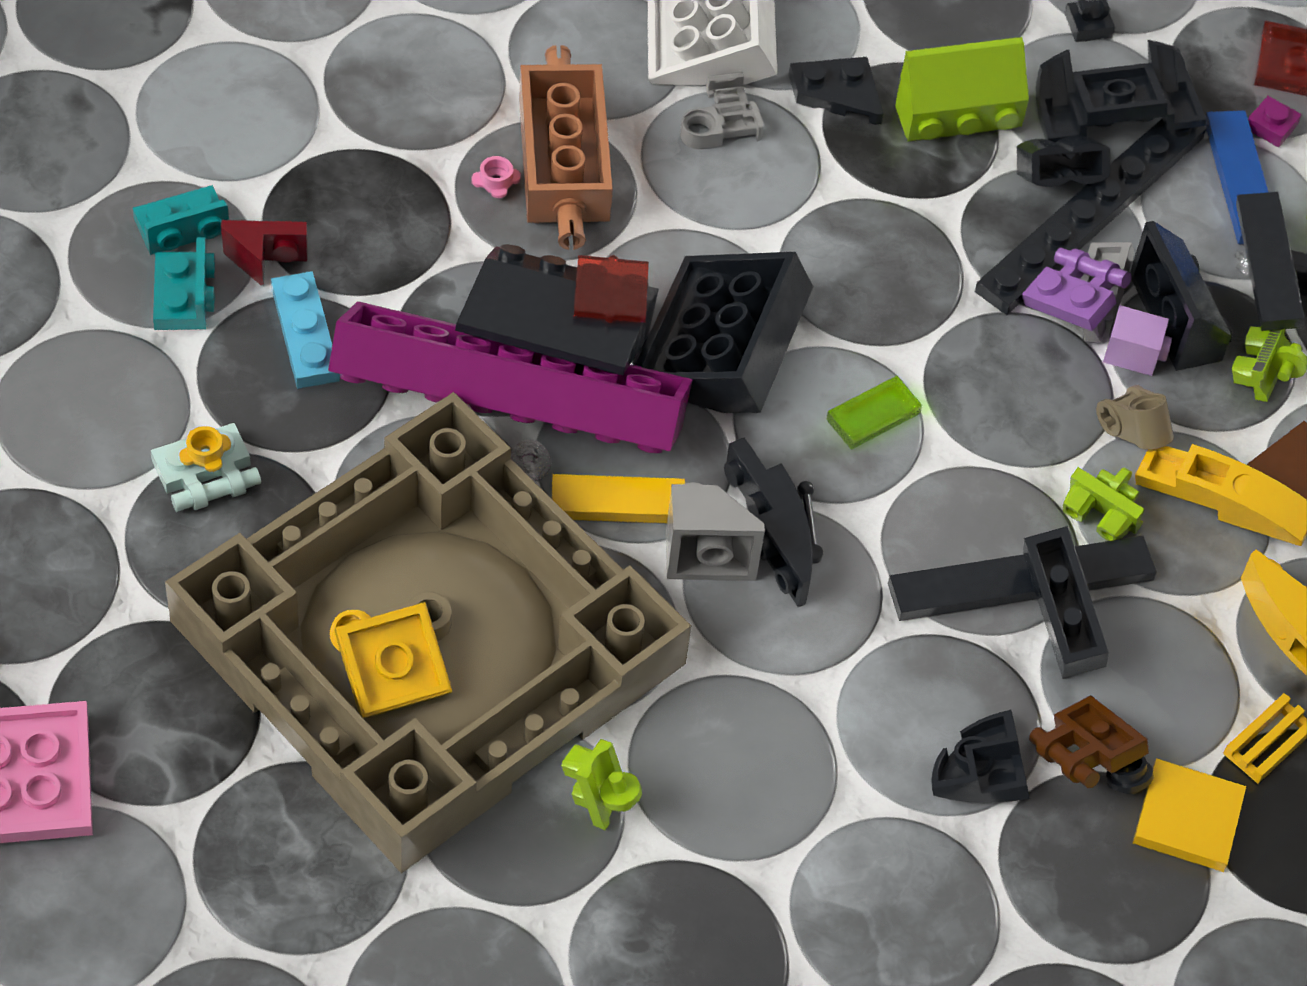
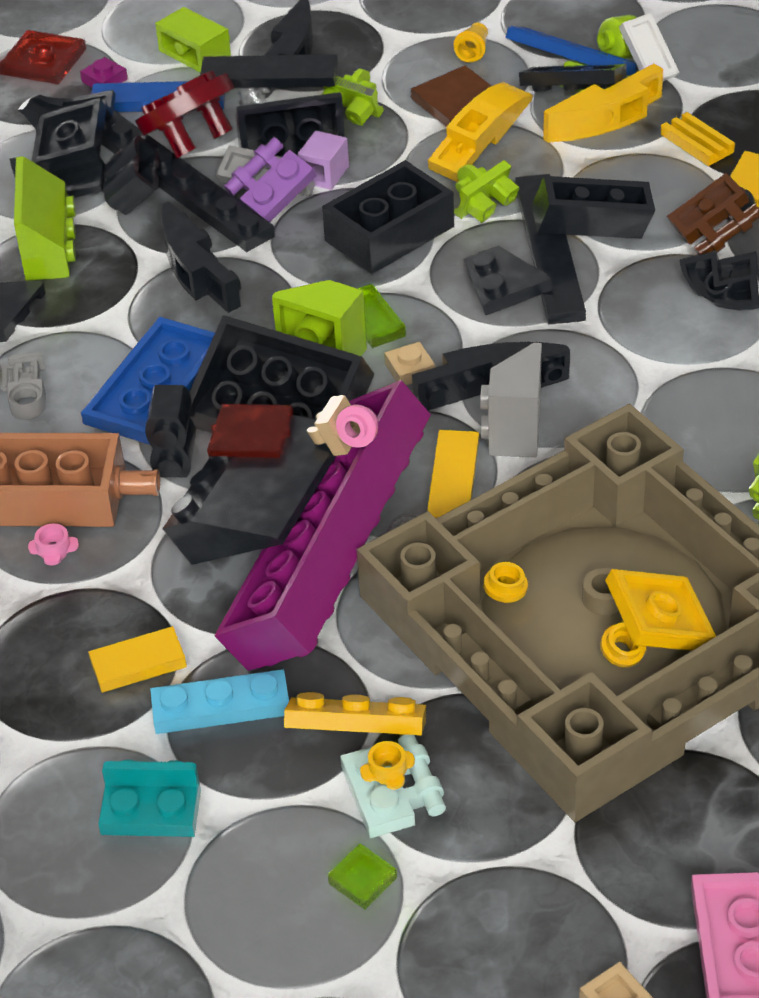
camera: 75 degrees left, 10 degrees down
(103, 453) = (362, 876): none -> clear neon green tile
(180, 219) = (51, 805): teal bracket -> none
(260, 241) = (112, 729): dark red slope -> none
(280, 431) = (355, 714): none -> yellow plate
(354, 260) = (137, 659): none -> yellow tile
(439, 521) = (505, 582): none -> yellow plate
(588, 359) = (364, 418): none -> bright pink plate
(602, 351) = (326, 426): none -> tan tile
(634, 231) = (170, 430): none -> black brick
(727, 220) = (164, 356): none -> blue plate
(796, 450) = (408, 361): none -> tan plate
(815, 355) = (323, 314): none -> lime slope
(939, 229) = (193, 262): none -> black slope
(946, 528) = (504, 279): none -> black wing
(1025, 404) = (388, 216): none -> black brick
(1137, 418) = (411, 146): dark tan piece -> none
(1173, 181) = (197, 94): none -> dark red piece

